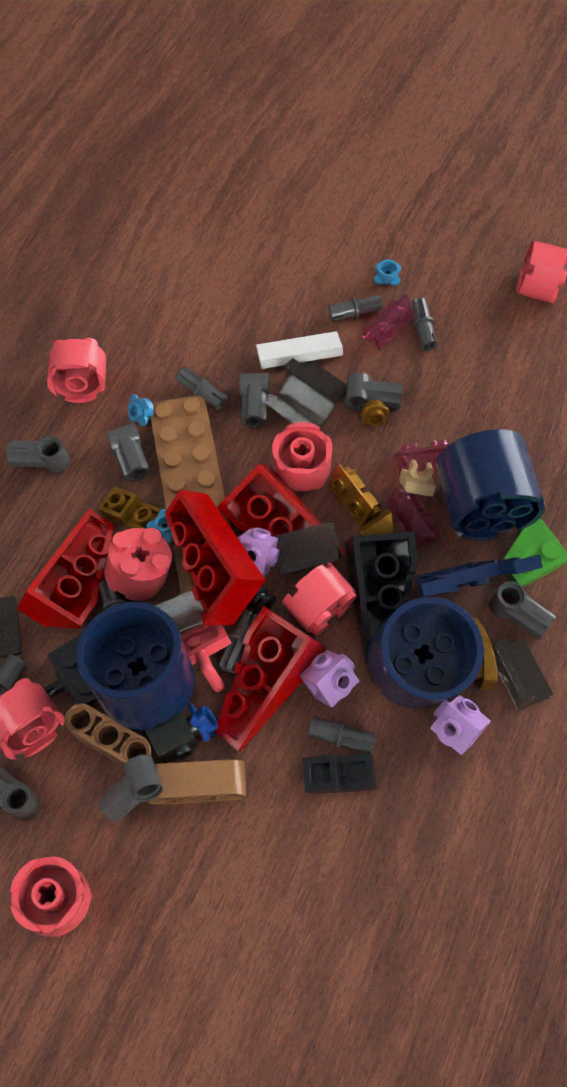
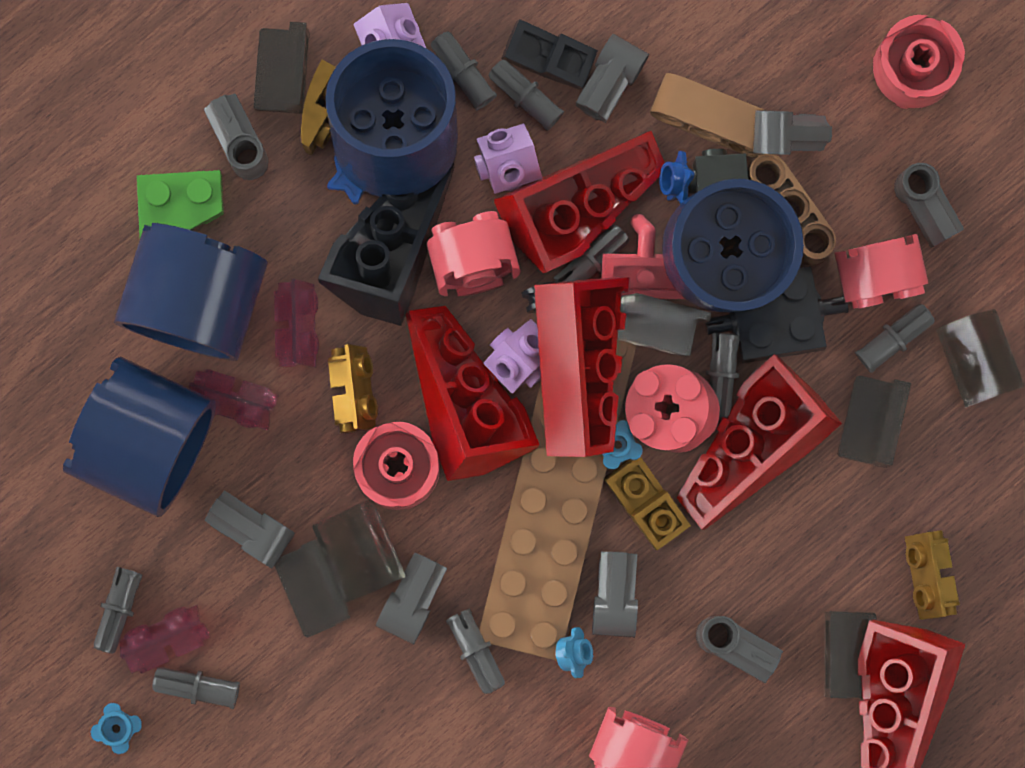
camera: 160 degrees left, 20 degrees up
(284, 782) = (616, 69): none -> dark grey piece
(301, 349) = (311, 652): white tile -> none
(307, 548) = (454, 328): clear smoke panel -> none
(374, 412) = (264, 496): pearl gold plate -> none
(379, 524) = (350, 326): pearl gold slope -> none
(395, 731) = (463, 70): none -> dark grey axle
(416, 481) = (266, 364): tan tile -> none
(467, 392) = (139, 436): none -> dark blue brick
(473, 573) = (292, 201): dark blue wing -> none

